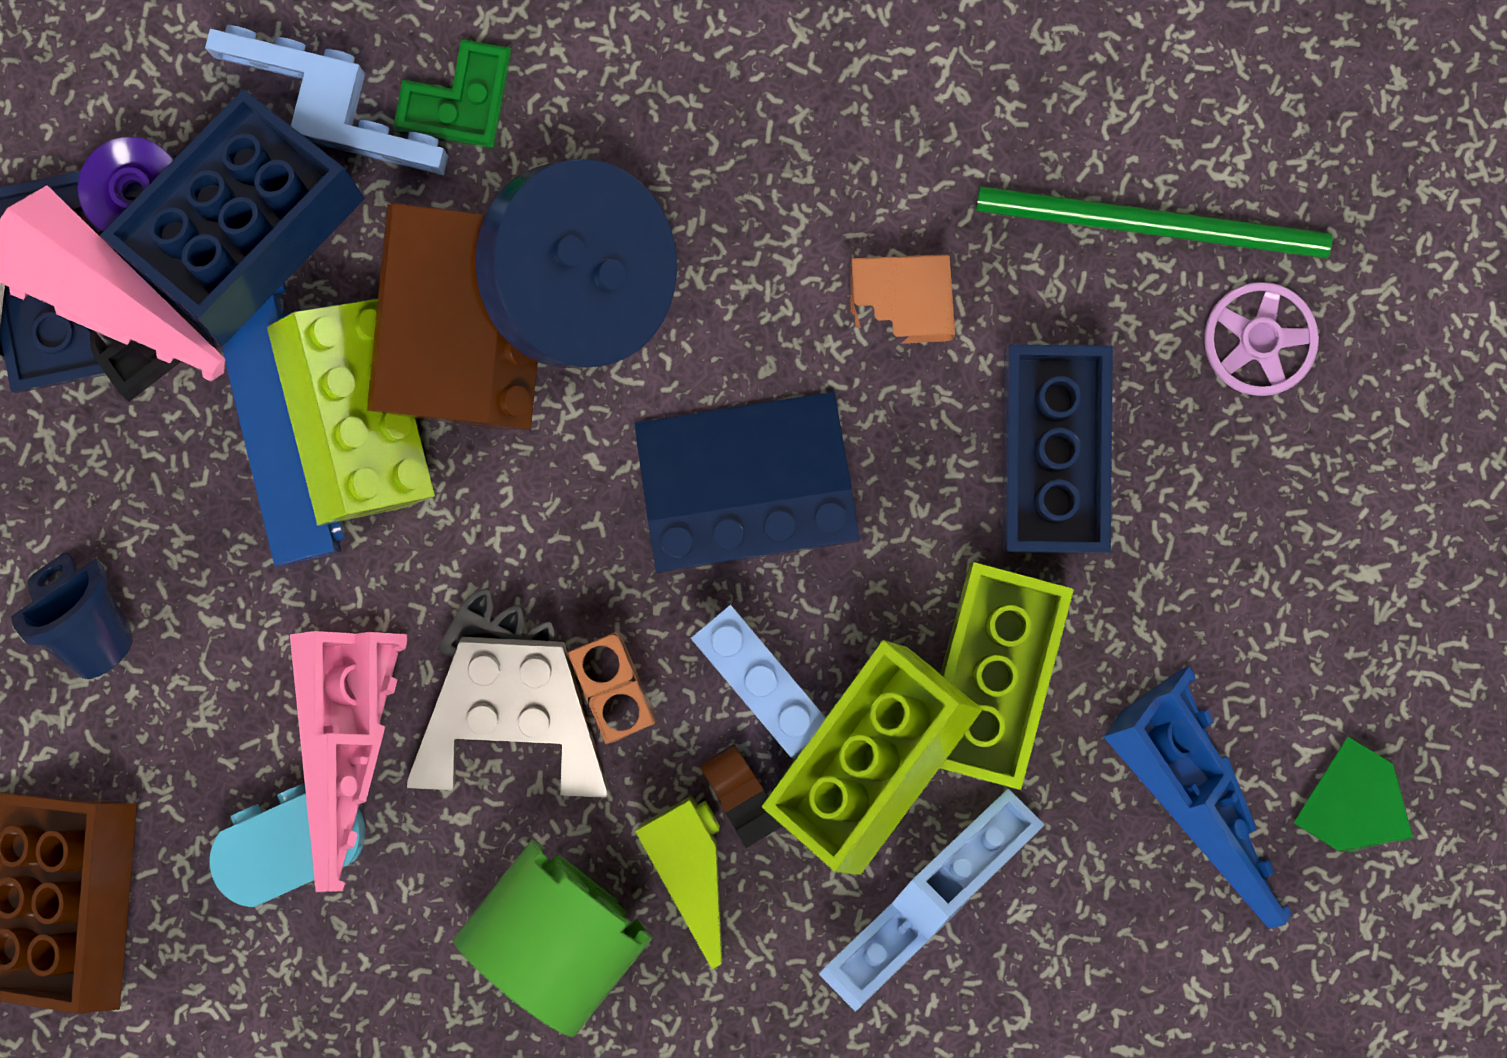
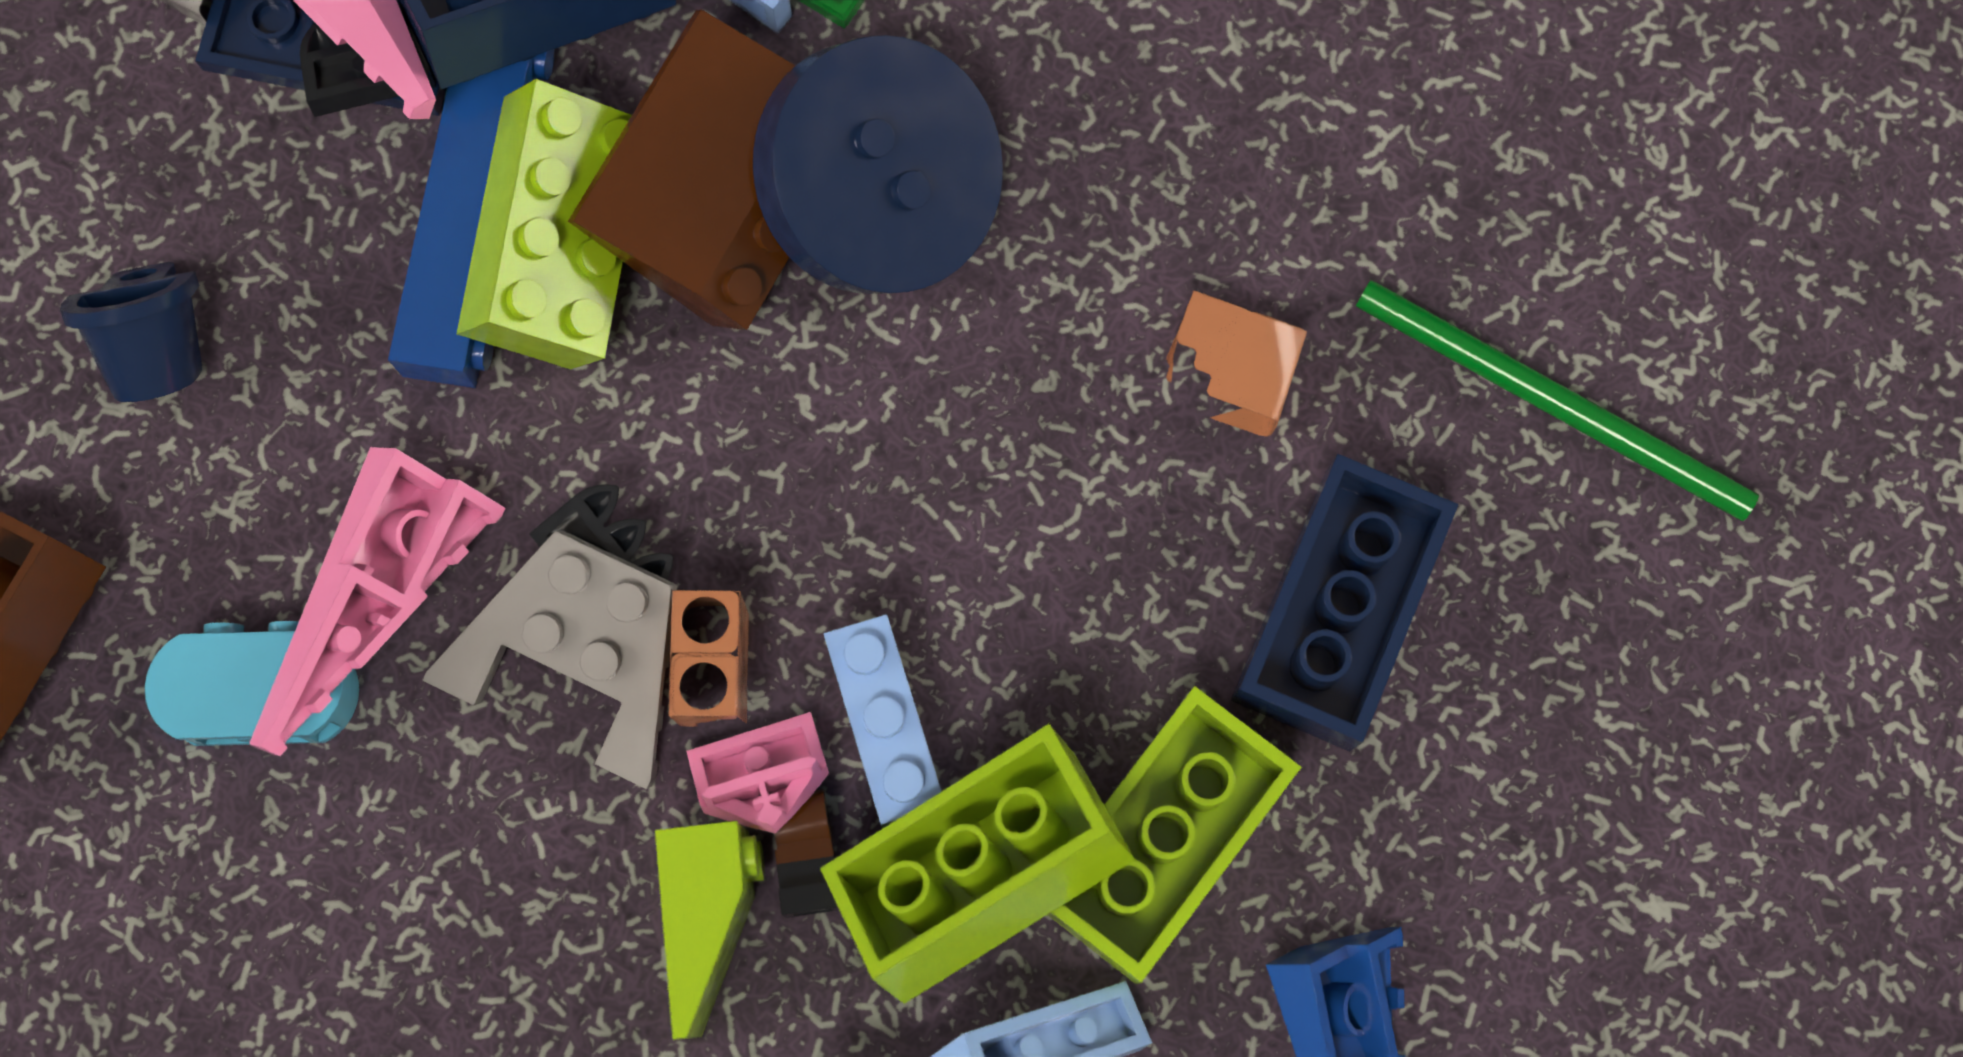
camera: 20 degrees right, 10 degrees down
(551, 939) = (498, 924): bright green brick -> none
(685, 753) = (760, 773): none -> bright pink slope
(746, 482) = (964, 499): dark blue slope -> none
(1260, 339) = (1630, 582): lavender wheel -> none

